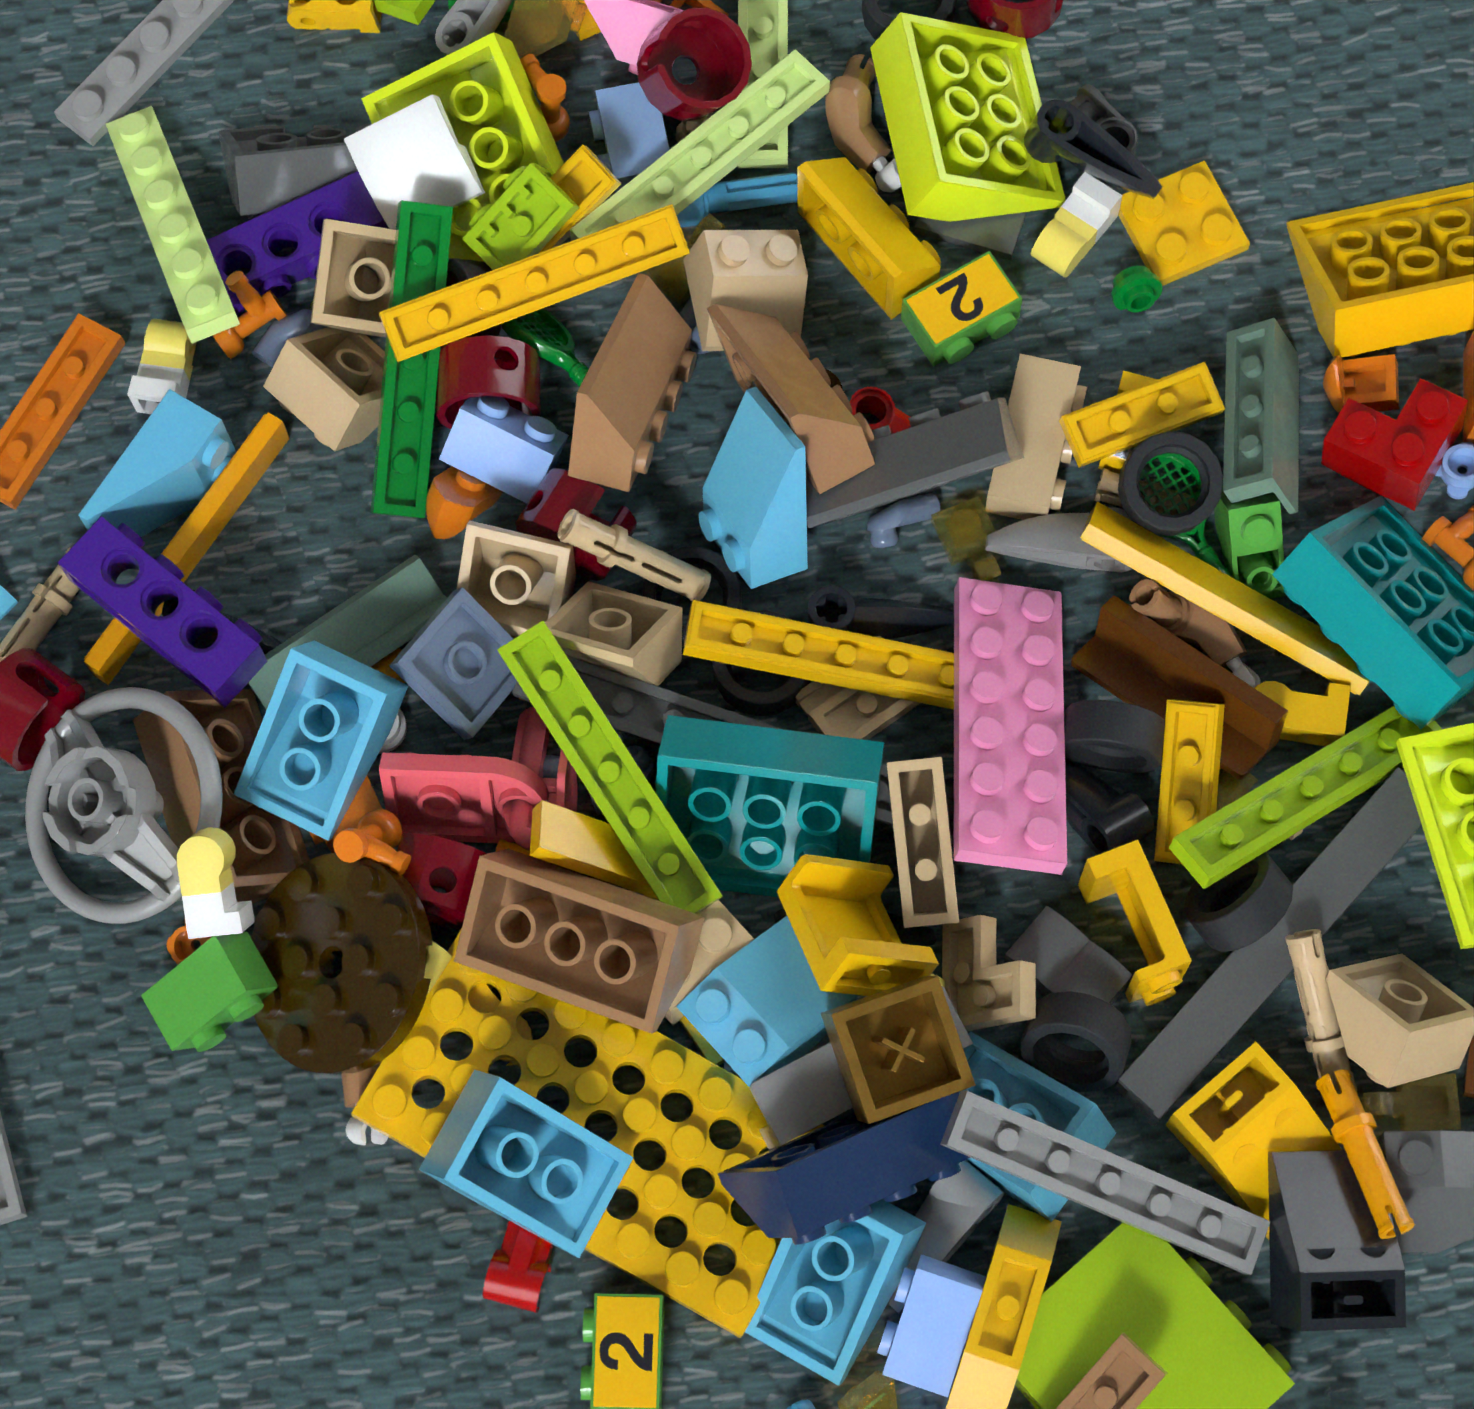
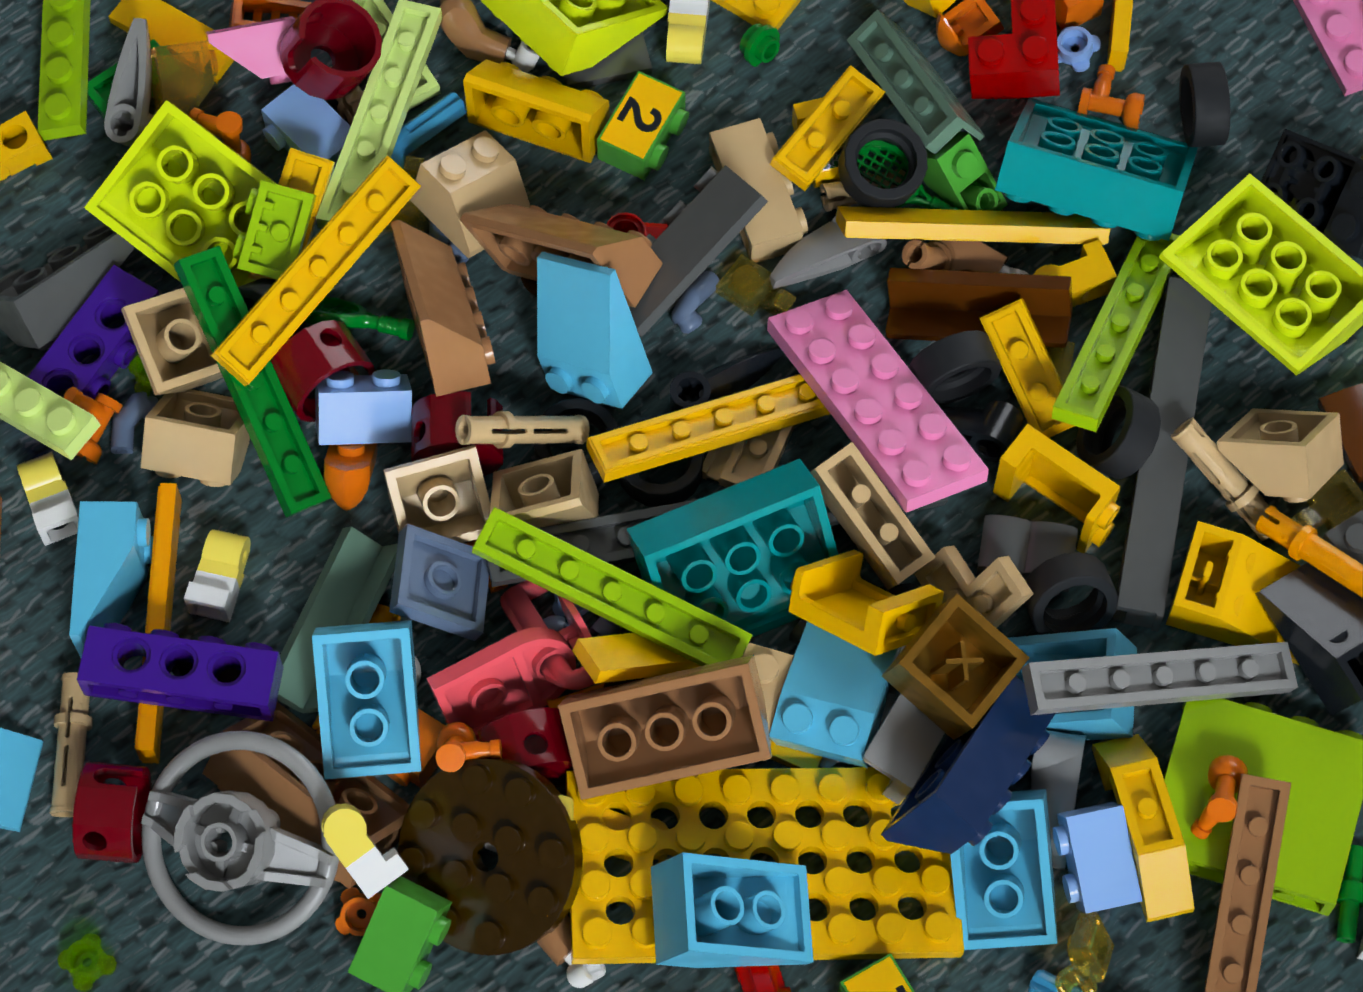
camera: 35 degrees left, 5 degrees down
(272, 533) = (218, 576): none -> leg
(414, 160) = (157, 230): white slope -> none
(1079, 1354) = (1222, 806): none -> orange piece

